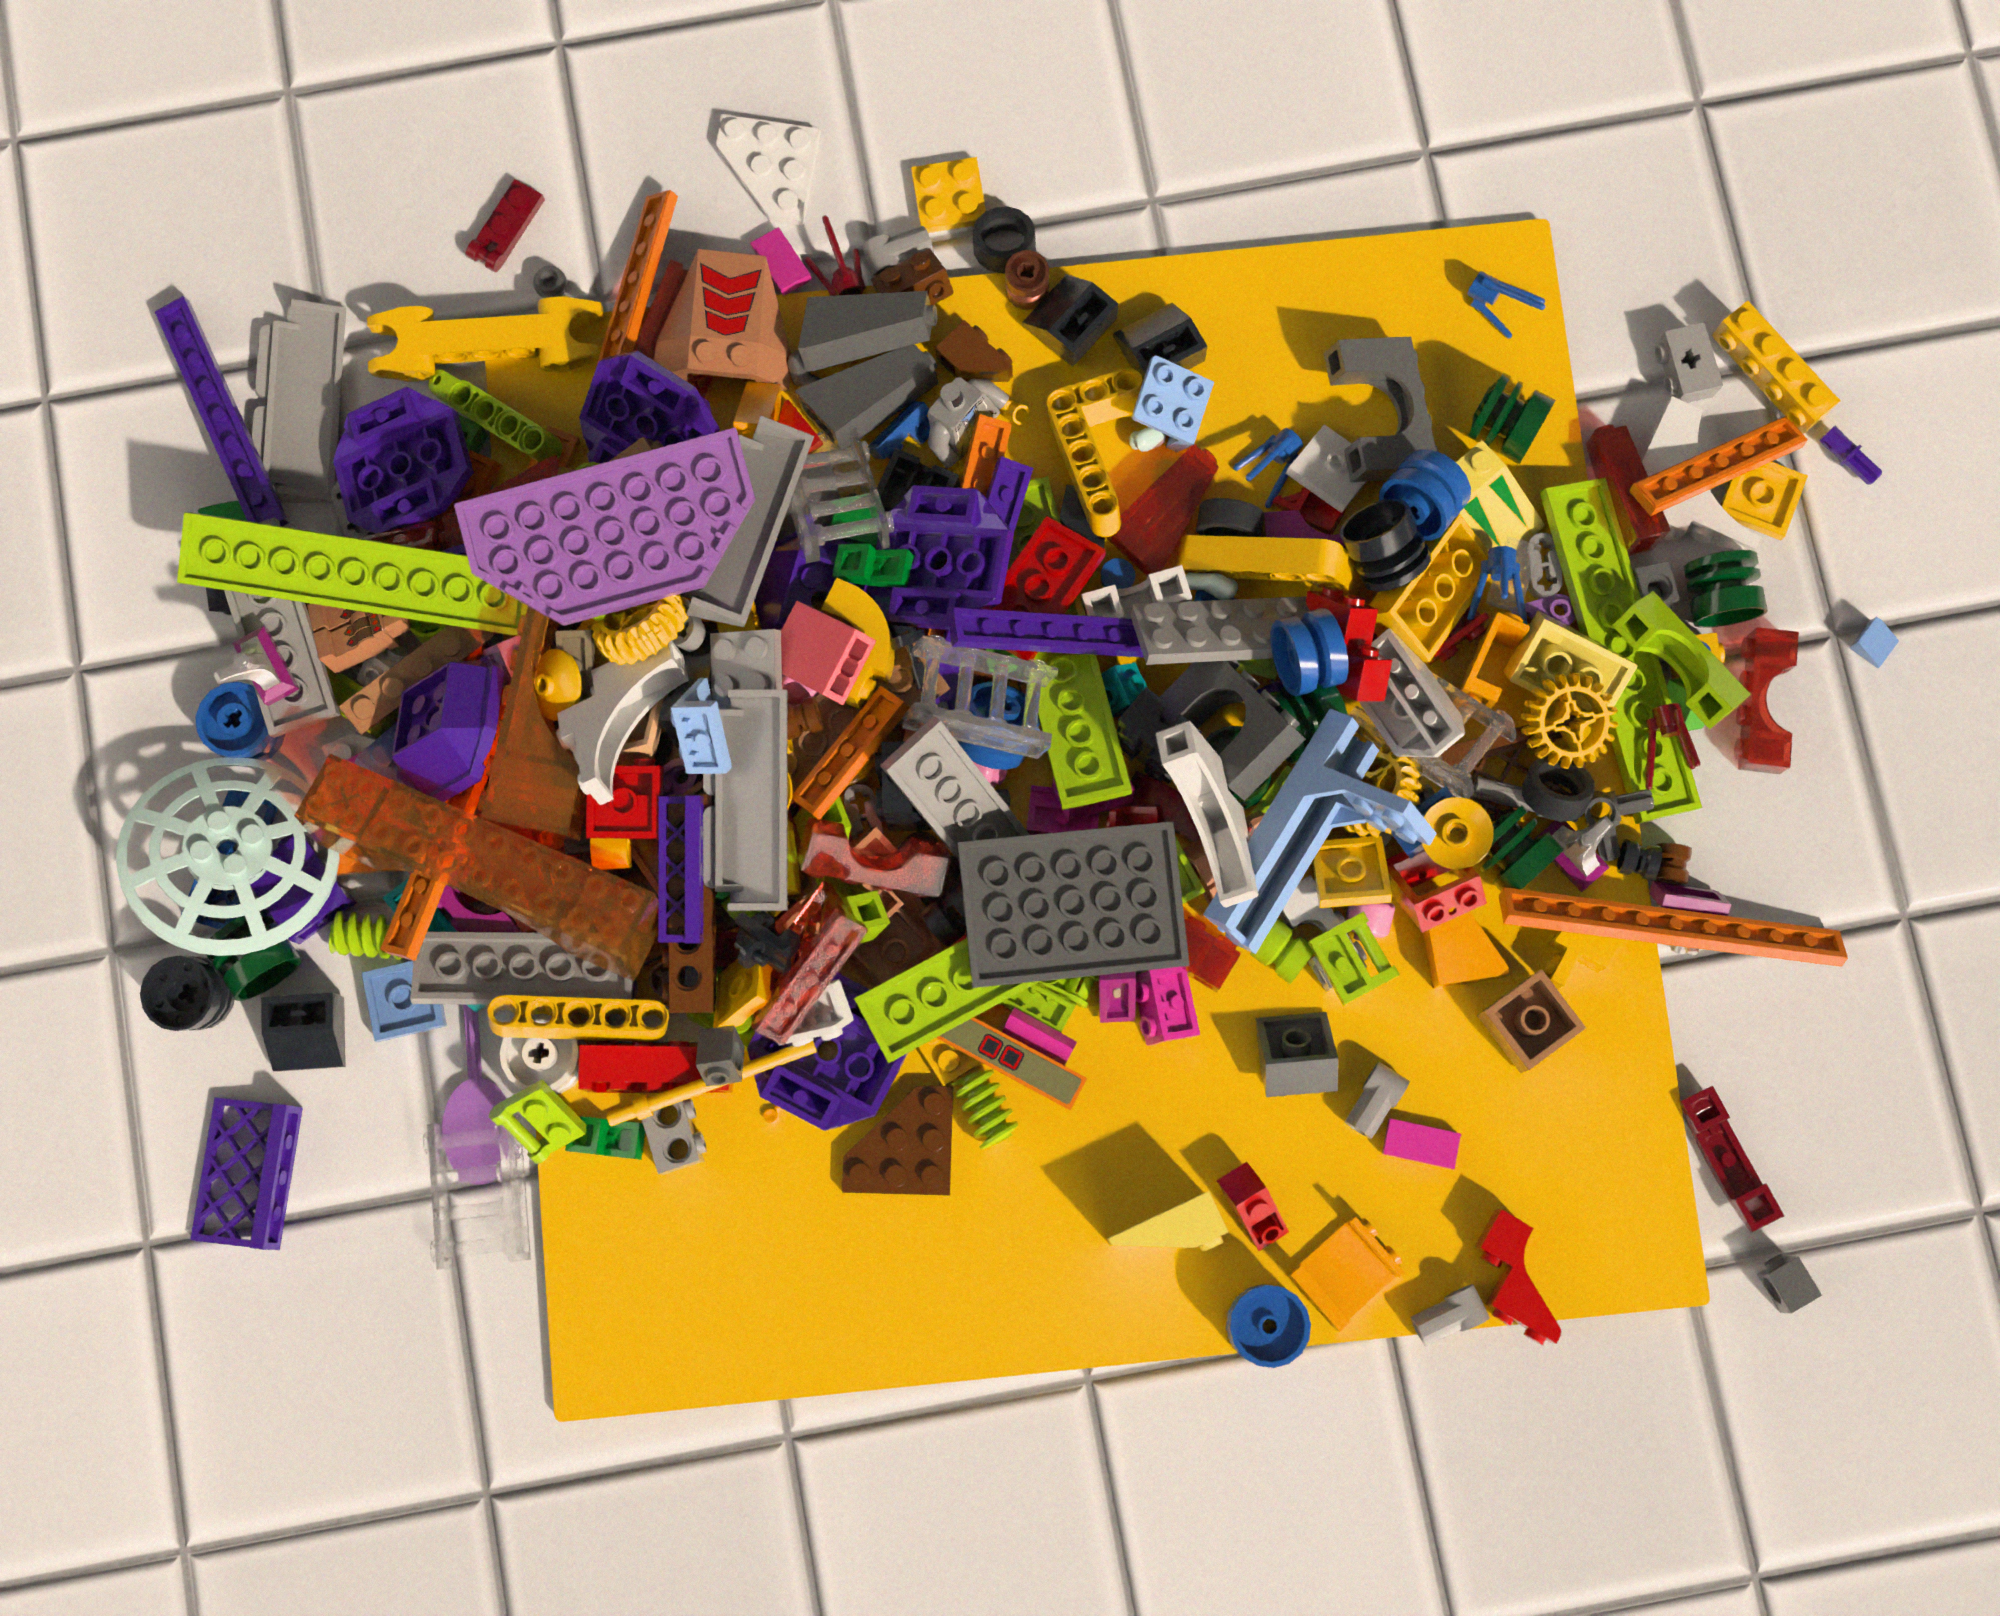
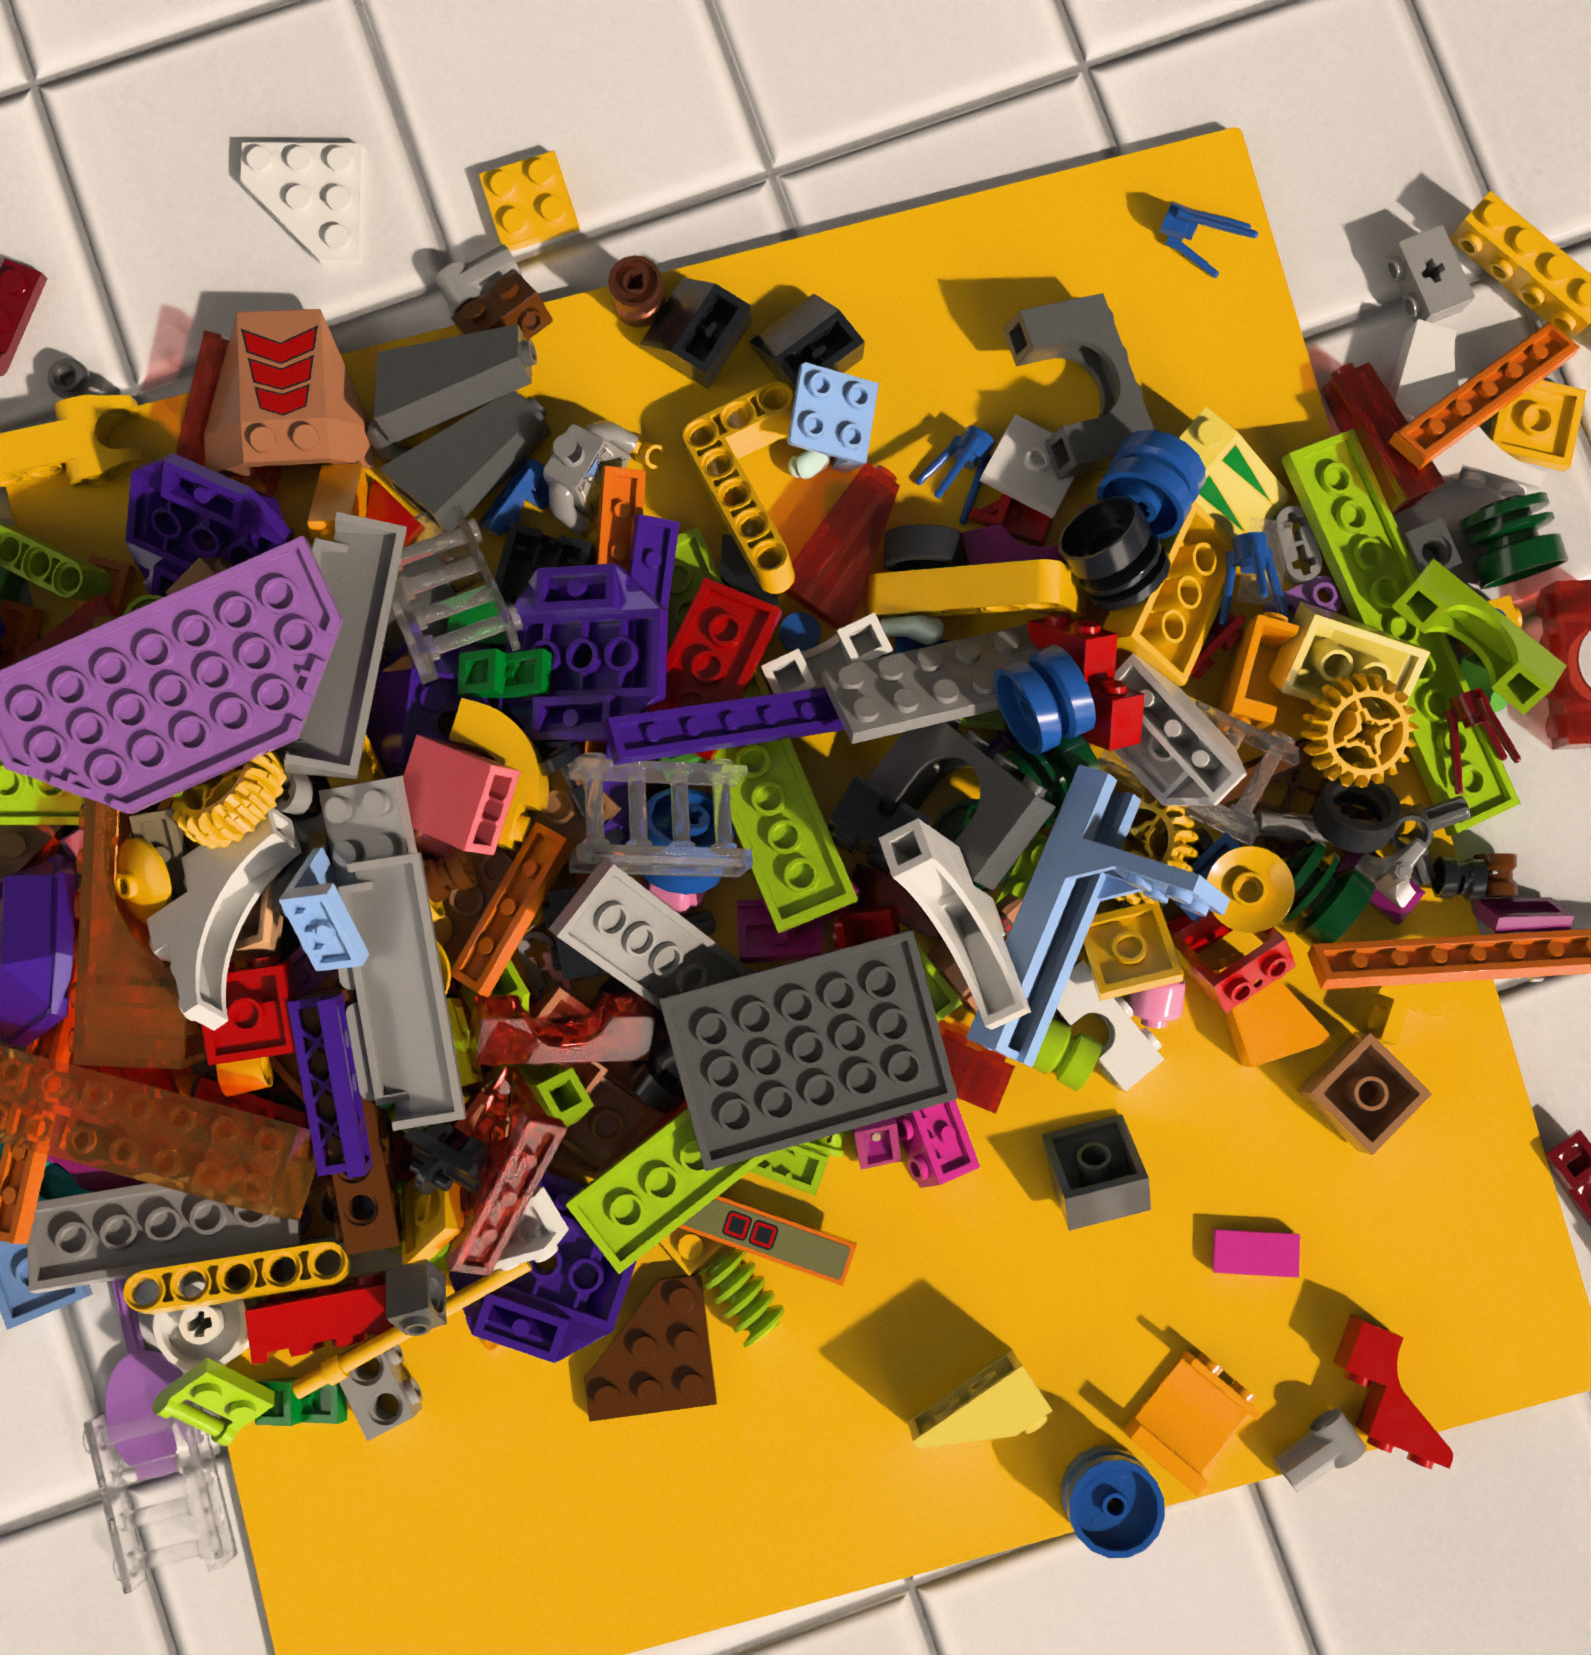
camera: 15 degrees left, 5 degrees up
(639, 274) = (171, 354): orange tile -> none
(783, 262) = (342, 312): dark pink tile -> none
(844, 280) = (419, 324): dark red plant -> none
(970, 356) = (585, 395): reddish brown slope -> none
(999, 219) = (591, 223): black tyre -> none
(1039, 1036) = (792, 1201): dark pink tile -> none
(1122, 686) = (828, 771): teal brick -> none
(1253, 1205) = (1072, 1360): red slope -> none
(1343, 963) = (1136, 1061): lime plate -> none
(1380, 1093) = (1201, 1200): light grey piece -> none
(1510, 417) = (1236, 374): dark green wheel -> none

